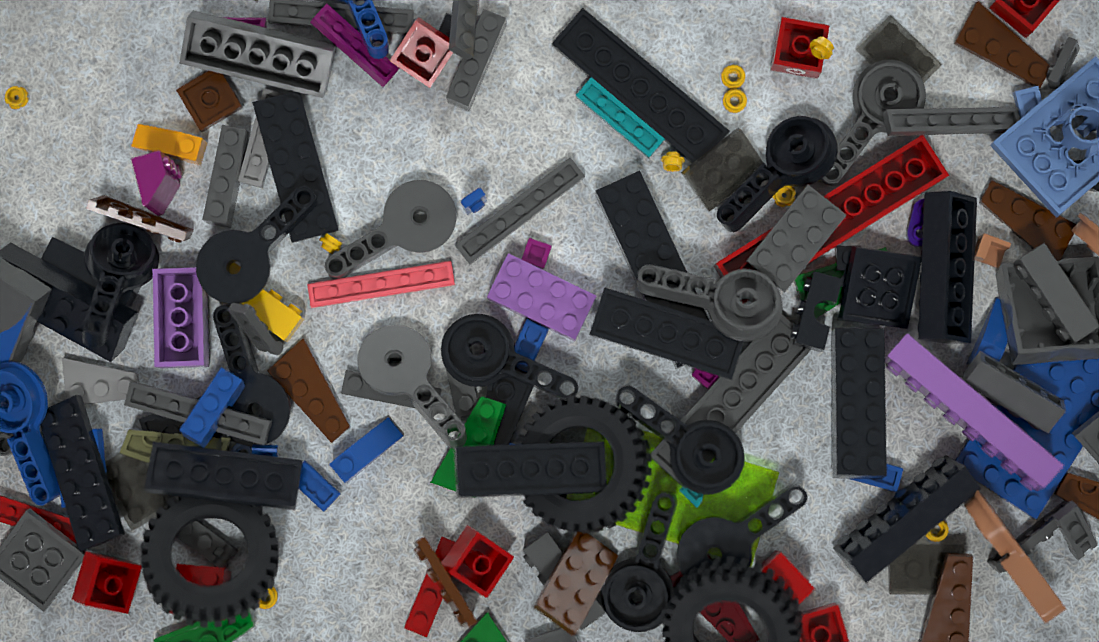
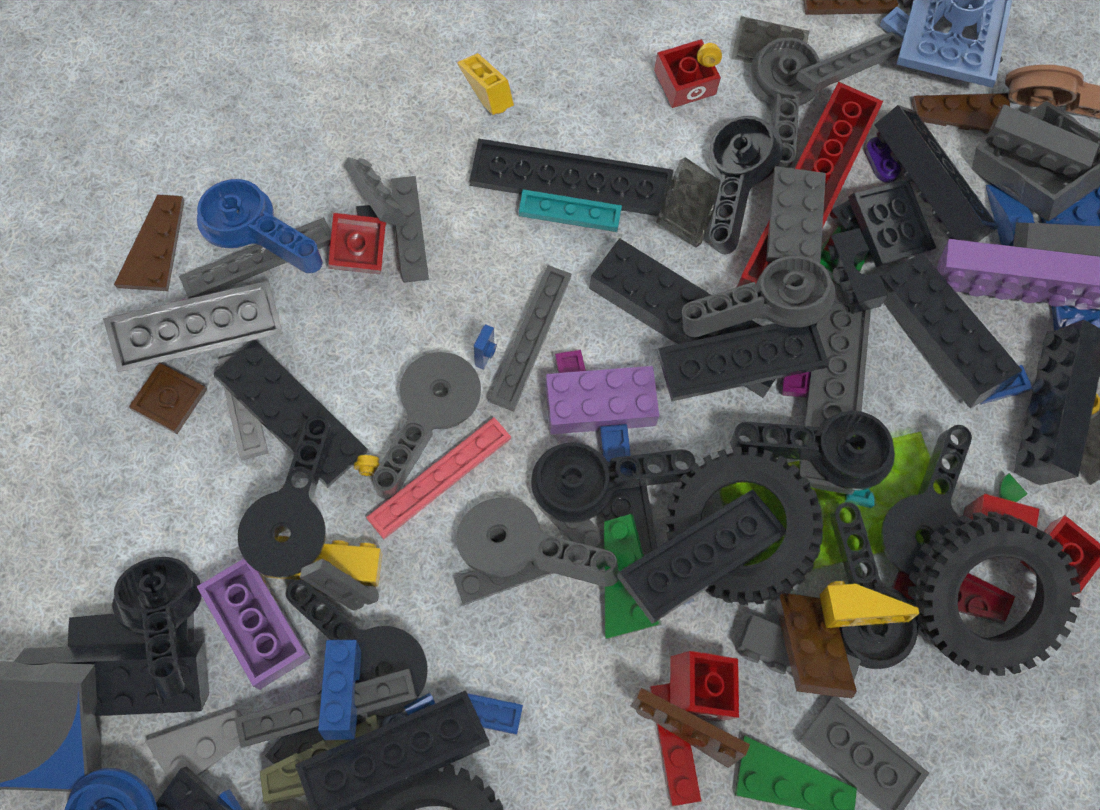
camera: 40 degrees left, 15 degrees down
(129, 214) = (148, 550): wing -> none
(156, 180) = (153, 492): magenta slope -> none
(171, 143) = (150, 460): light orange slope -> none
(225, 174) = (224, 459): dark grey brick -> none
(309, 390) = (430, 619): reddish brown wing -> none
(352, 44) = (283, 273): magenta plate -> none
(366, 450) = (522, 646): blue slope -> none
(624, 574) = (858, 606): none -> yellow slope
(672, 161) = (640, 222): yellow plate -> none
(736, 70) = (645, 122): yellow plate -> none
(739, 95) = (661, 140): yellow plate -> none
(788, 200) = (760, 195): yellow plate -> none
(819, 560) = (1011, 489): none -> green tile
(990, 250) = (955, 147): nougat panel -> none

